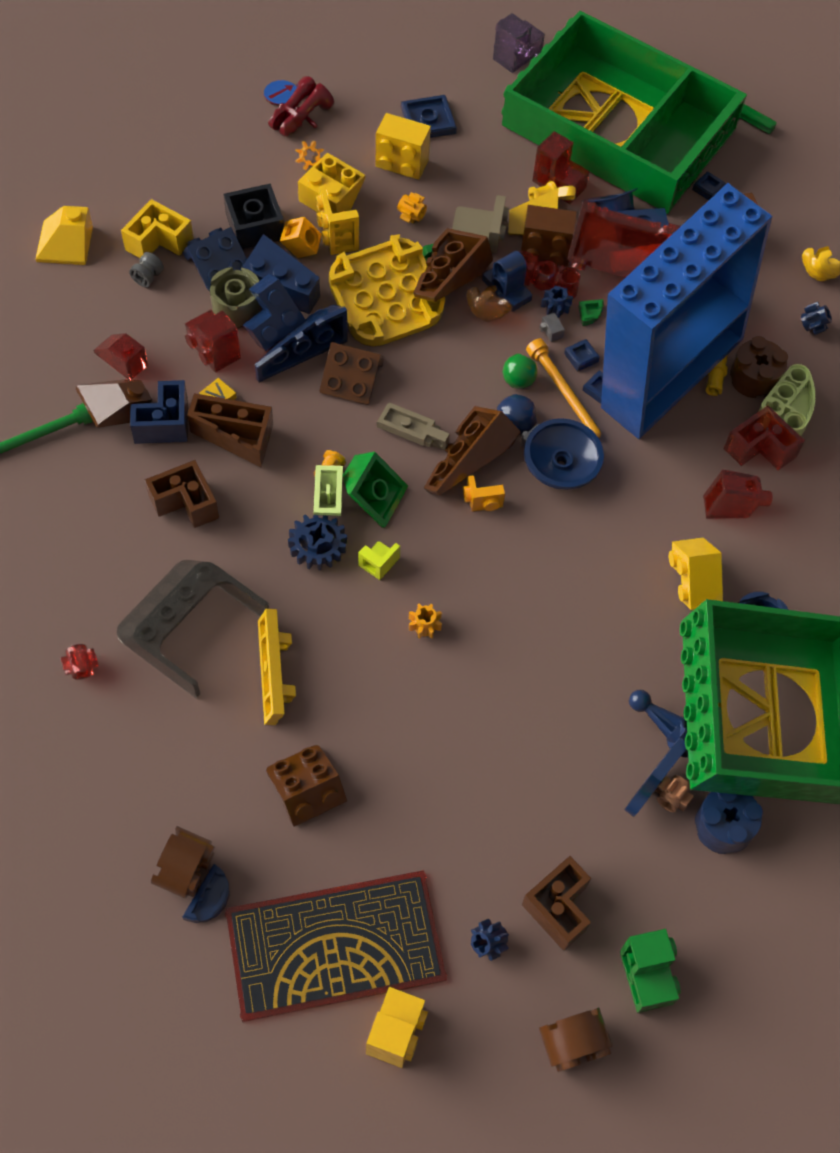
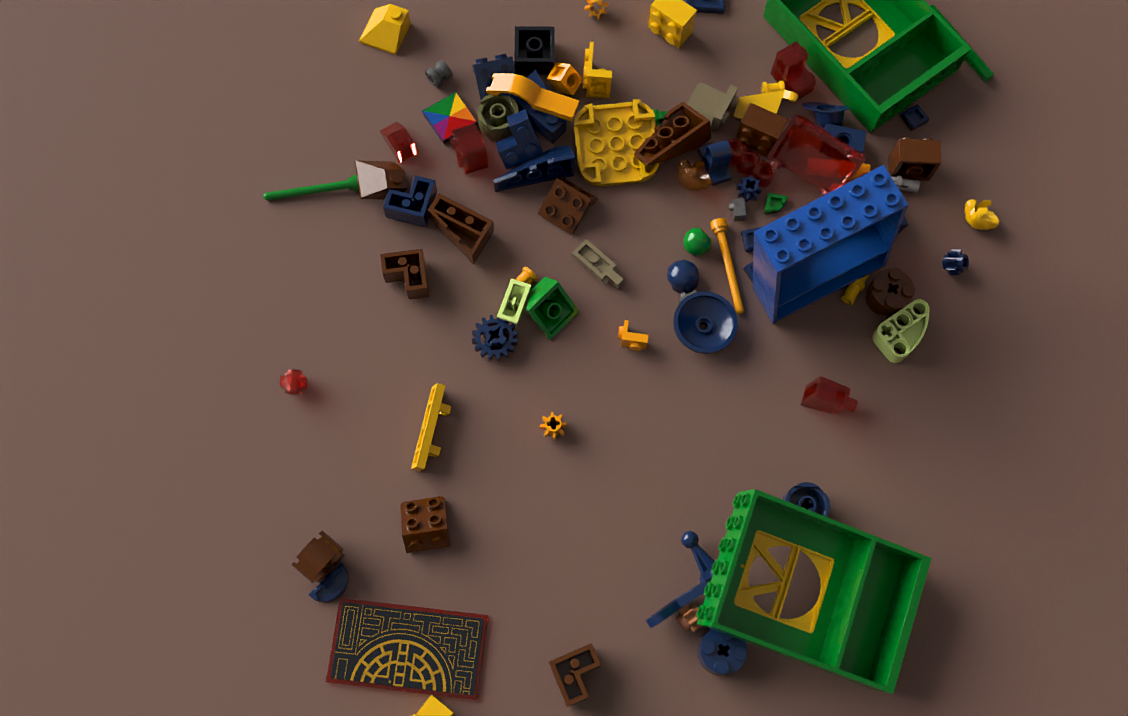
camera: 20 degrees right, 10 degrees up
(154, 227) = (455, 39): yellow brick -> none
(167, 607) = (370, 357): clear smoke windscreen -> none
(171, 312) = (448, 115): none -> tile
(219, 389) = (460, 193): yellow tile -> none
(281, 260) = (537, 97): none -> light orange piece
(340, 182) = (608, 36): yellow slope -> none
(378, 559) = (536, 365): neon yellow panel -> none
(412, 207) = (662, 74): light orange gear -> none
(480, 440) = (644, 293): reddish brown wedge -> none
(489, 939) = (515, 682): dark blue gear -> none
(699, 569) = (774, 450): yellow brick -> none
(766, 435) = (871, 351): clear red brick -> none

